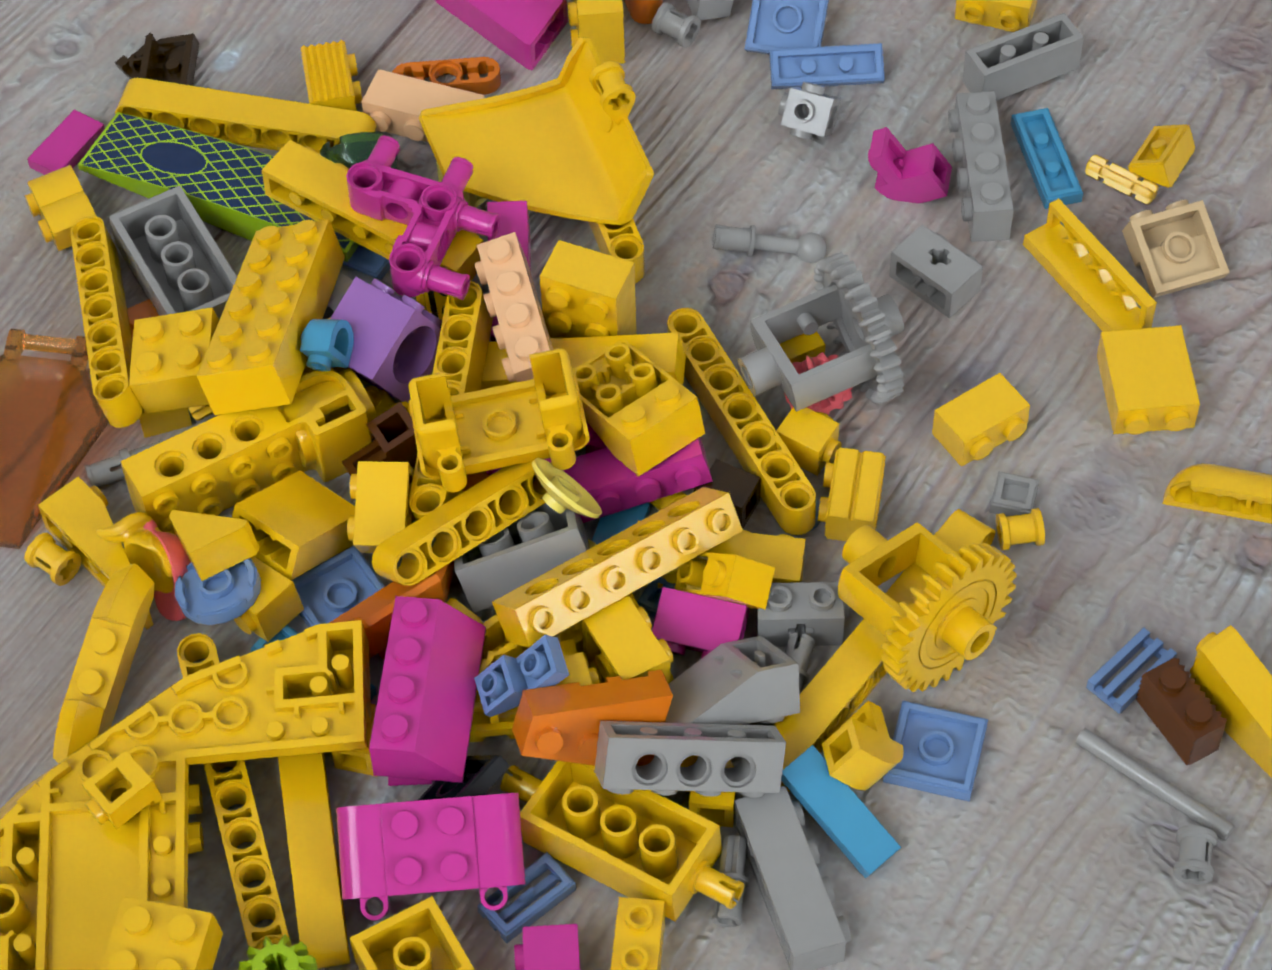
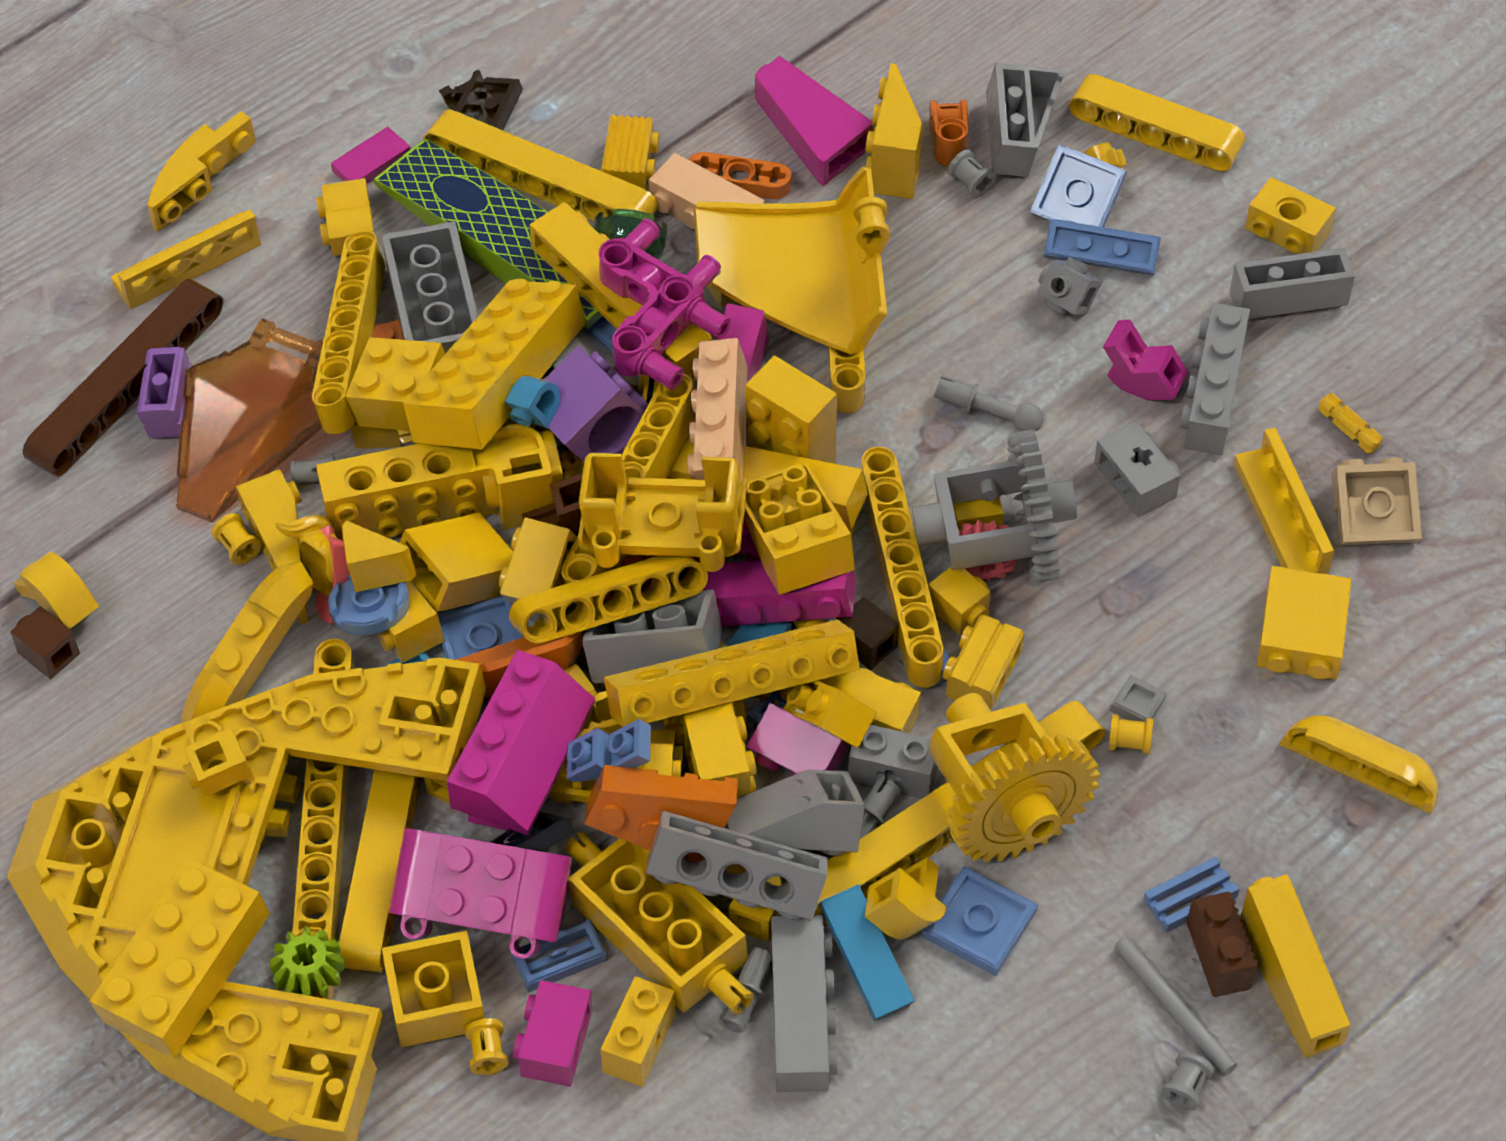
camera: 15 degrees right, 0 degrees up
(564, 491) = (703, 590): light yellow dish -> none
(981, 420) = (1130, 621): yellow brick -> none
(1046, 157) = (1285, 384): dark azure tile -> none
(1164, 154) = (1399, 408): yellow slope -> none

